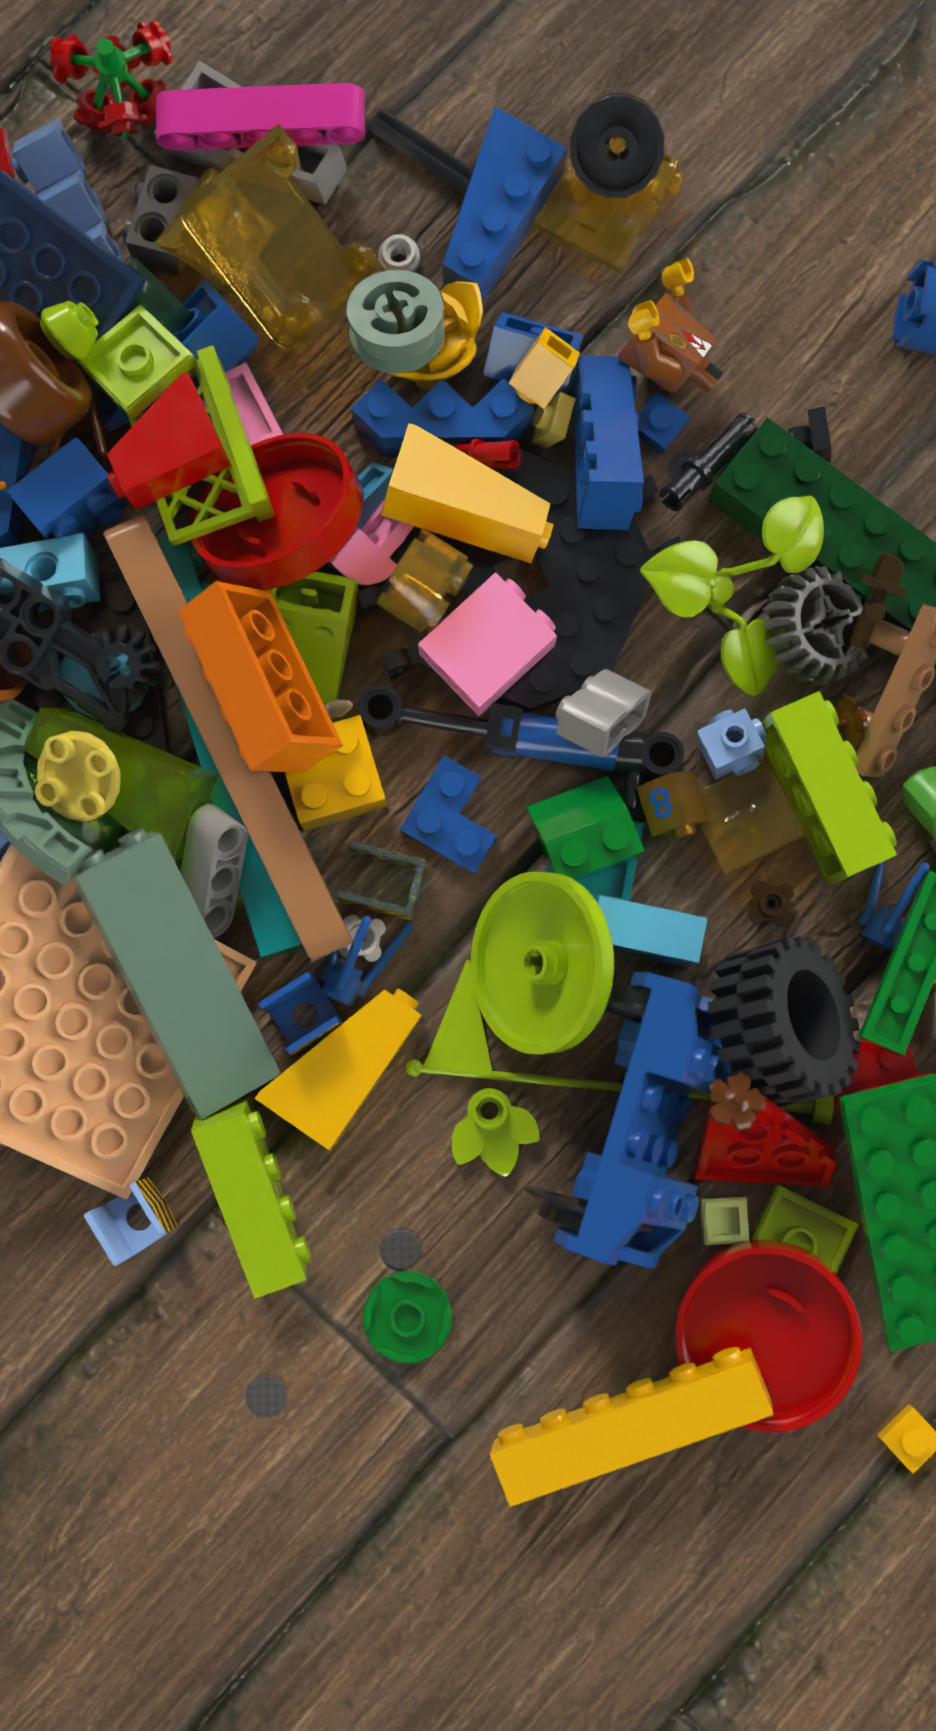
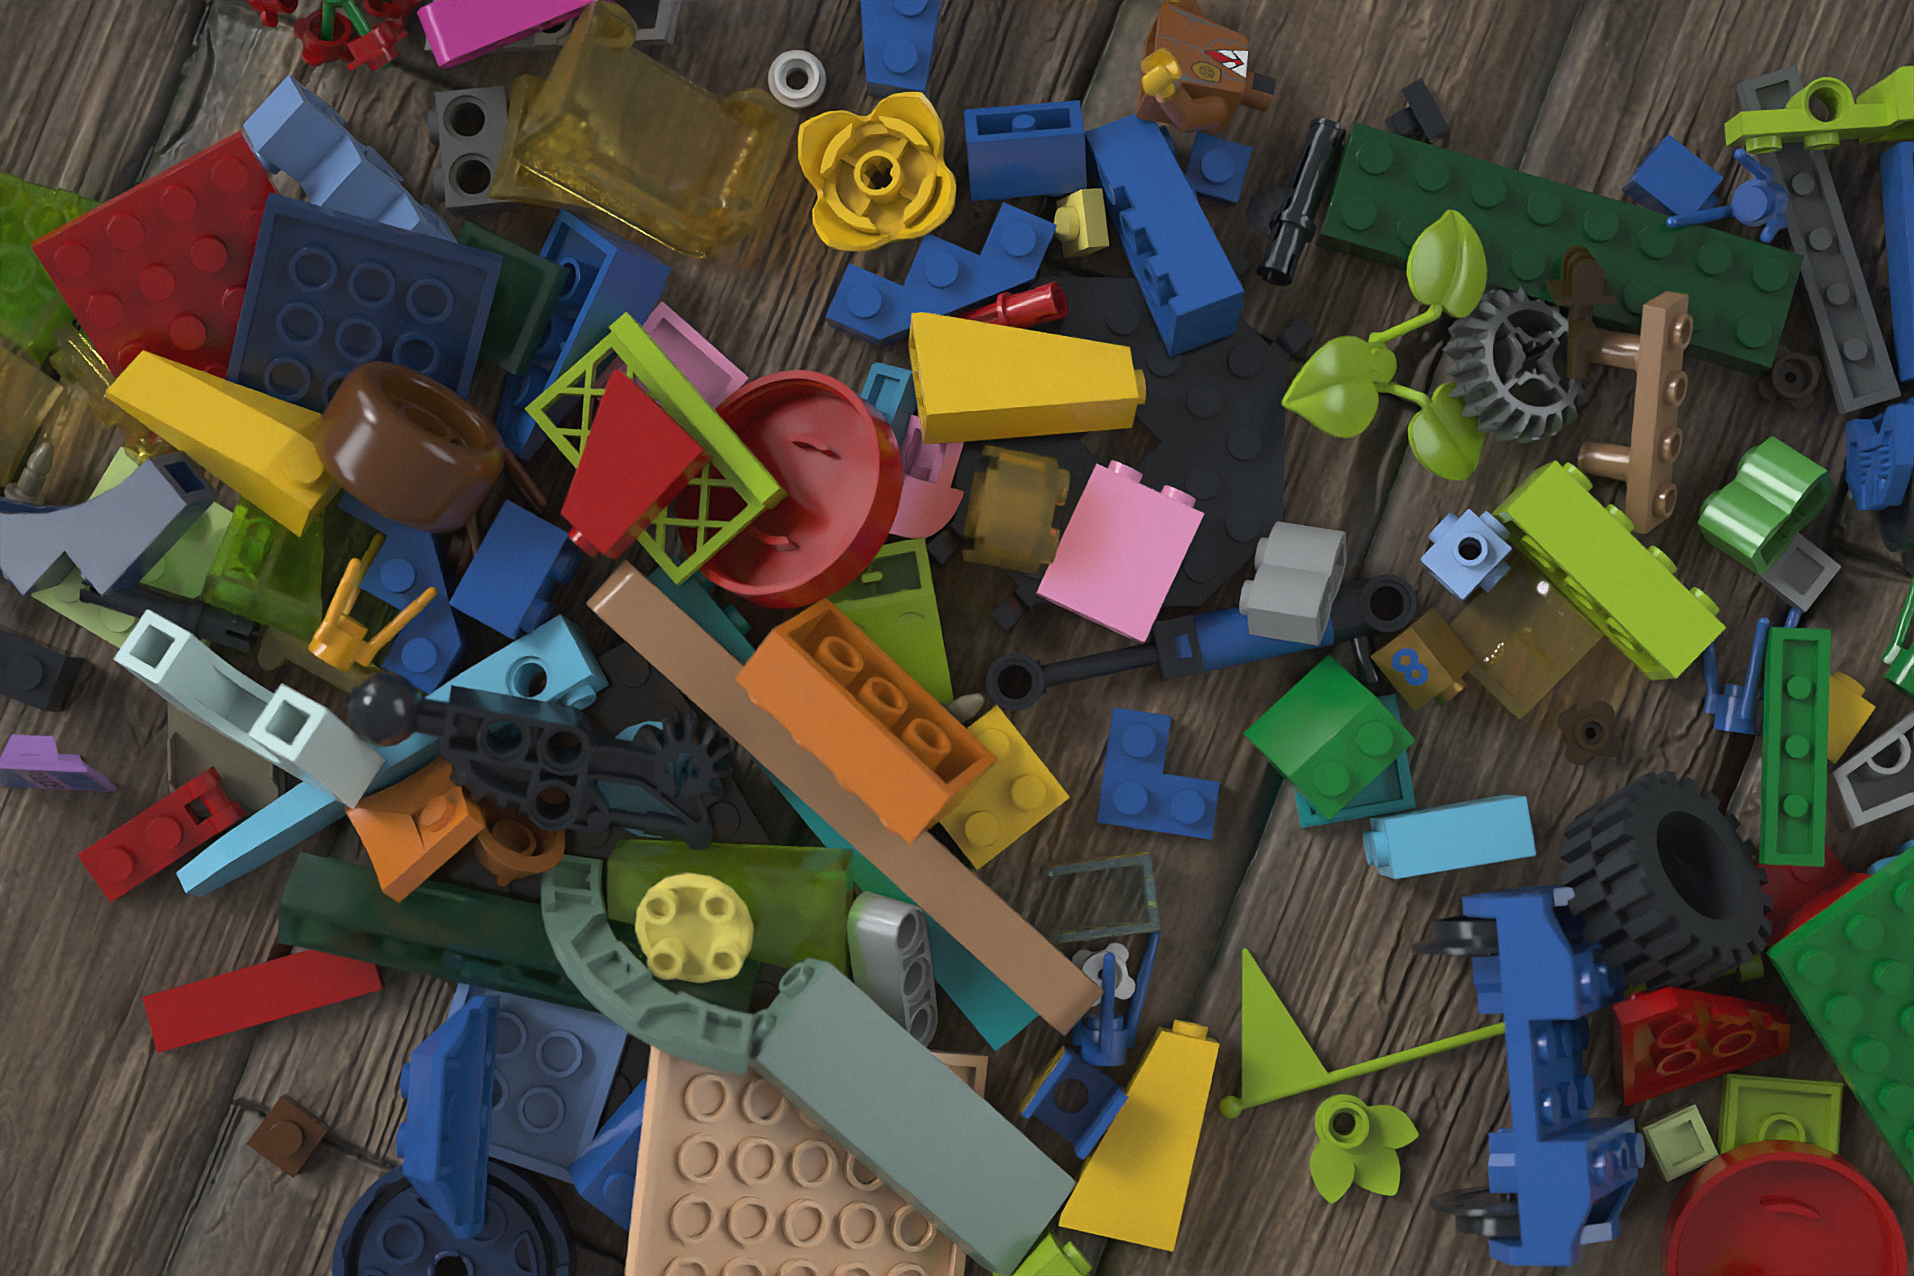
camera: 25 degrees left, 5 degrees up
(70, 329) = (437, 362): lime cone -> none
(136, 361) = (534, 367): lime tile -> none
(375, 329) = (858, 158): sand green wheel -> none
(542, 963) = (1343, 926): lime dish -> none
(544, 369) = (1053, 174): yellow brick -> none
(735, 1102) = (1645, 1012): reddish brown plant -> none
(851, 721) = (1604, 471): reddish brown plant -> none

